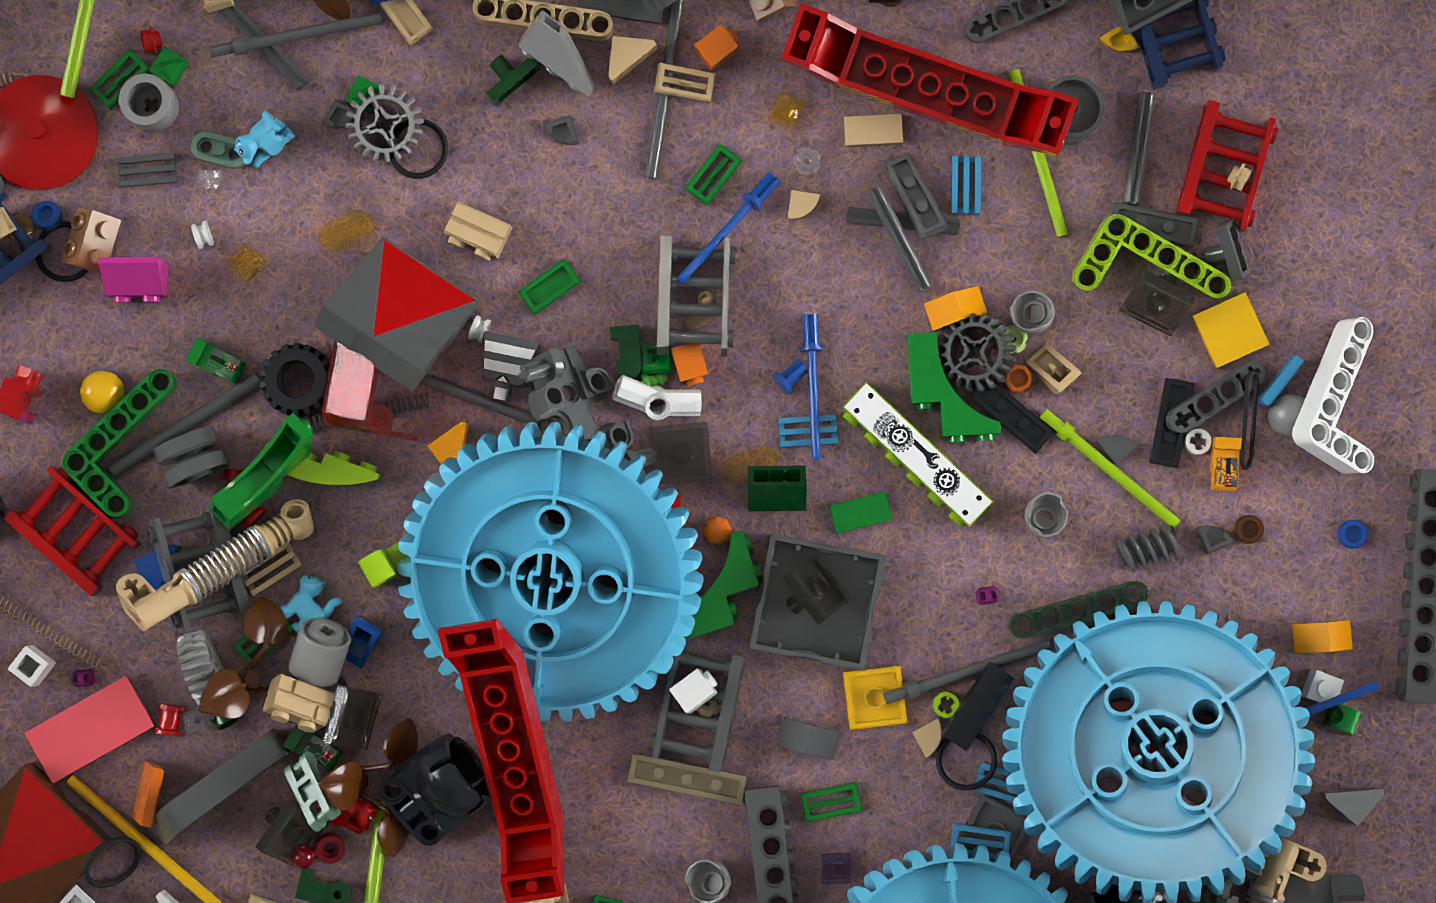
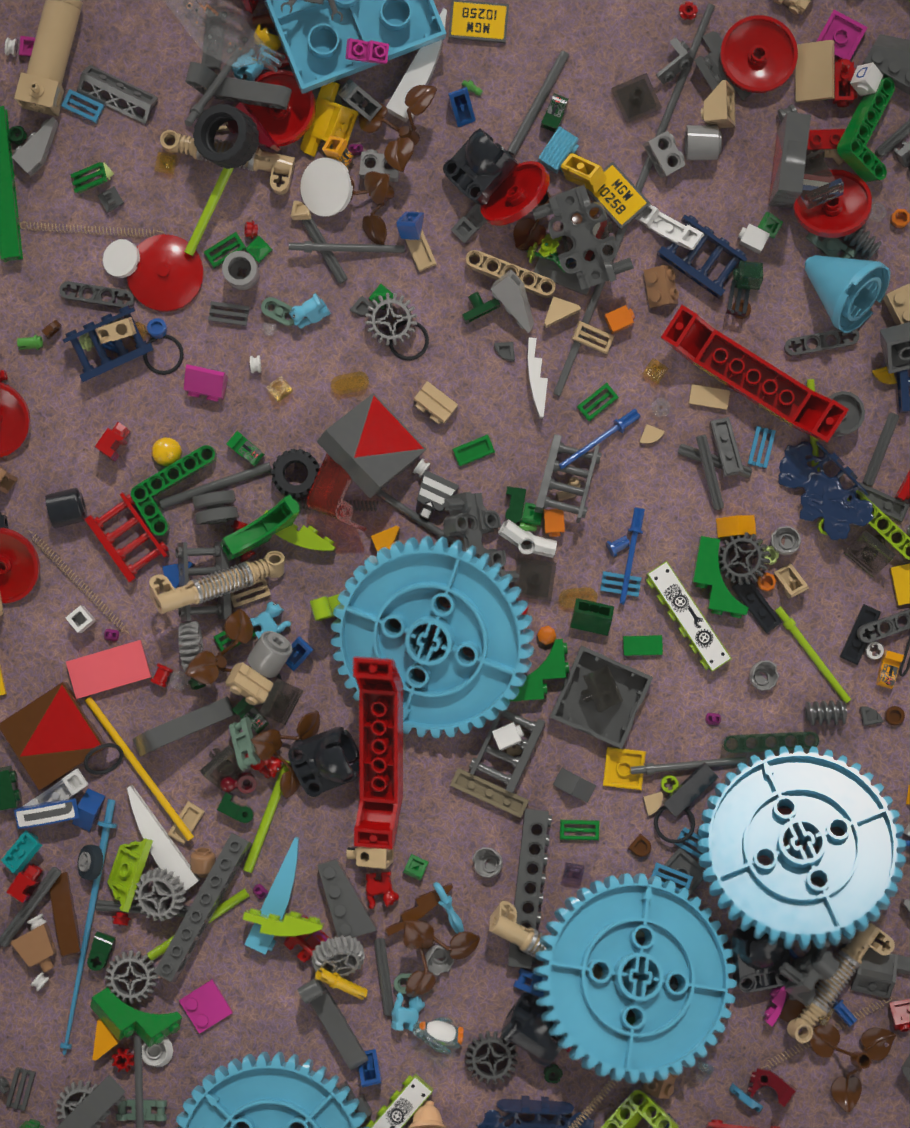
camera: 20 degrees right, 0 degrees up
(90, 238) = (181, 350): medium nougat bracket -> none
(148, 793) = (137, 720): orange tile -> none
(619, 168) = (537, 384): none -> white slope
(925, 805) = (640, 846): none -> reddish brown tile
(1071, 232) = (824, 494): none -> dark blue plant
(1116, 446) = (820, 641): dark grey tile -> none

